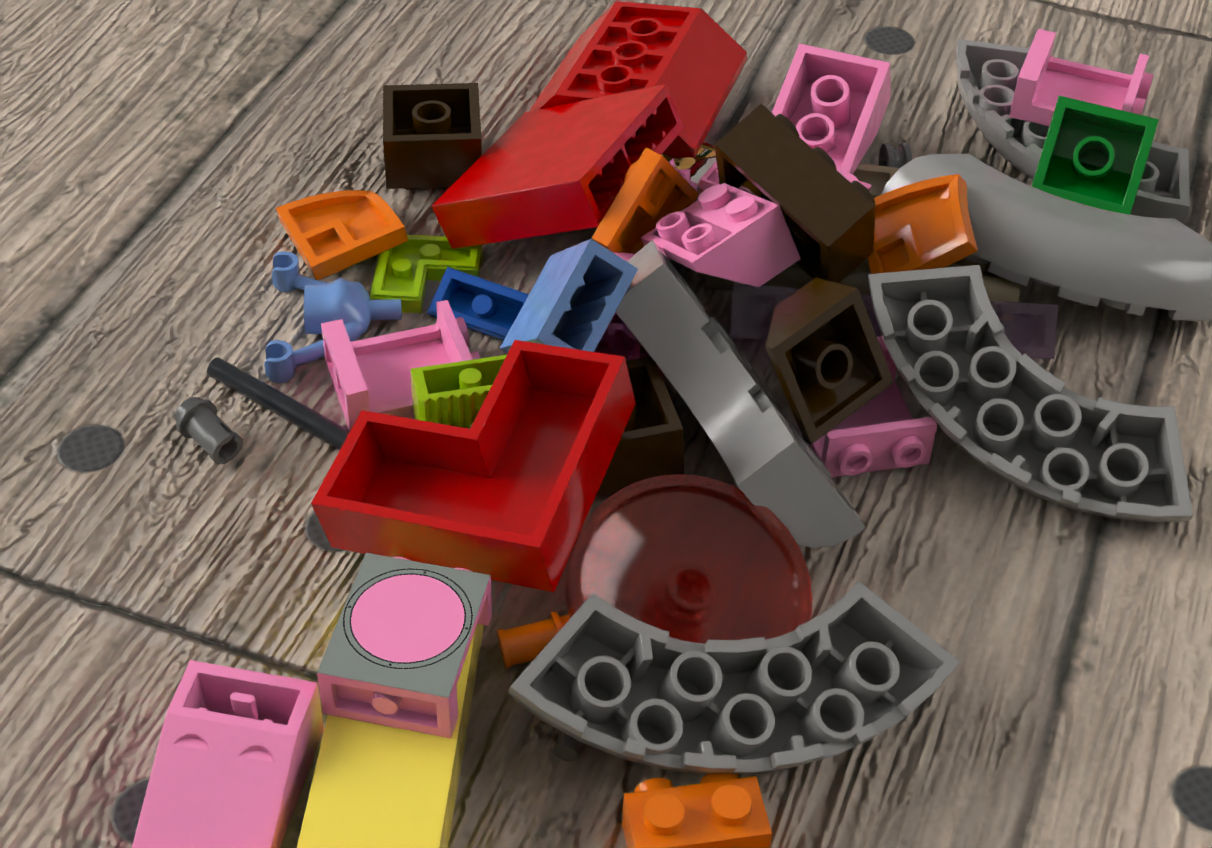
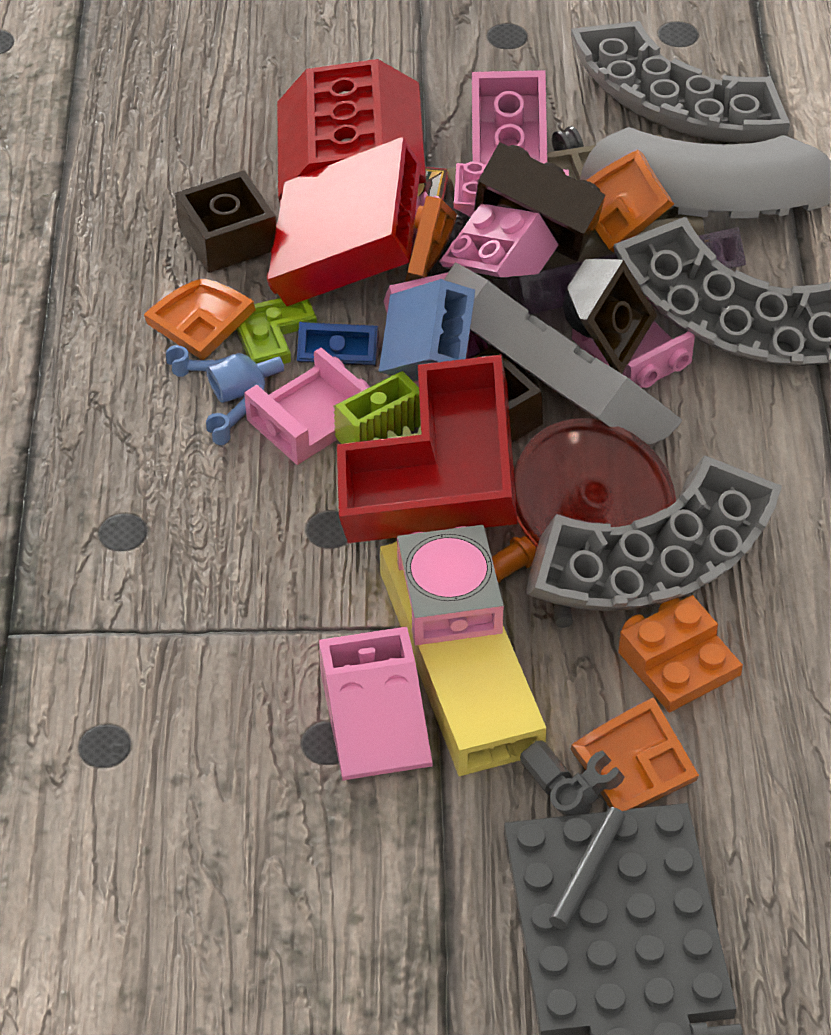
camera: 20 degrees left, 5 degrees up
(199, 420) = (205, 493): dark grey pin -> none
(278, 402) = (252, 461): black bar -> none
(1048, 77) = (681, 54): bright pink panel -> none
(1095, 155) = (716, 105): green slope -> none

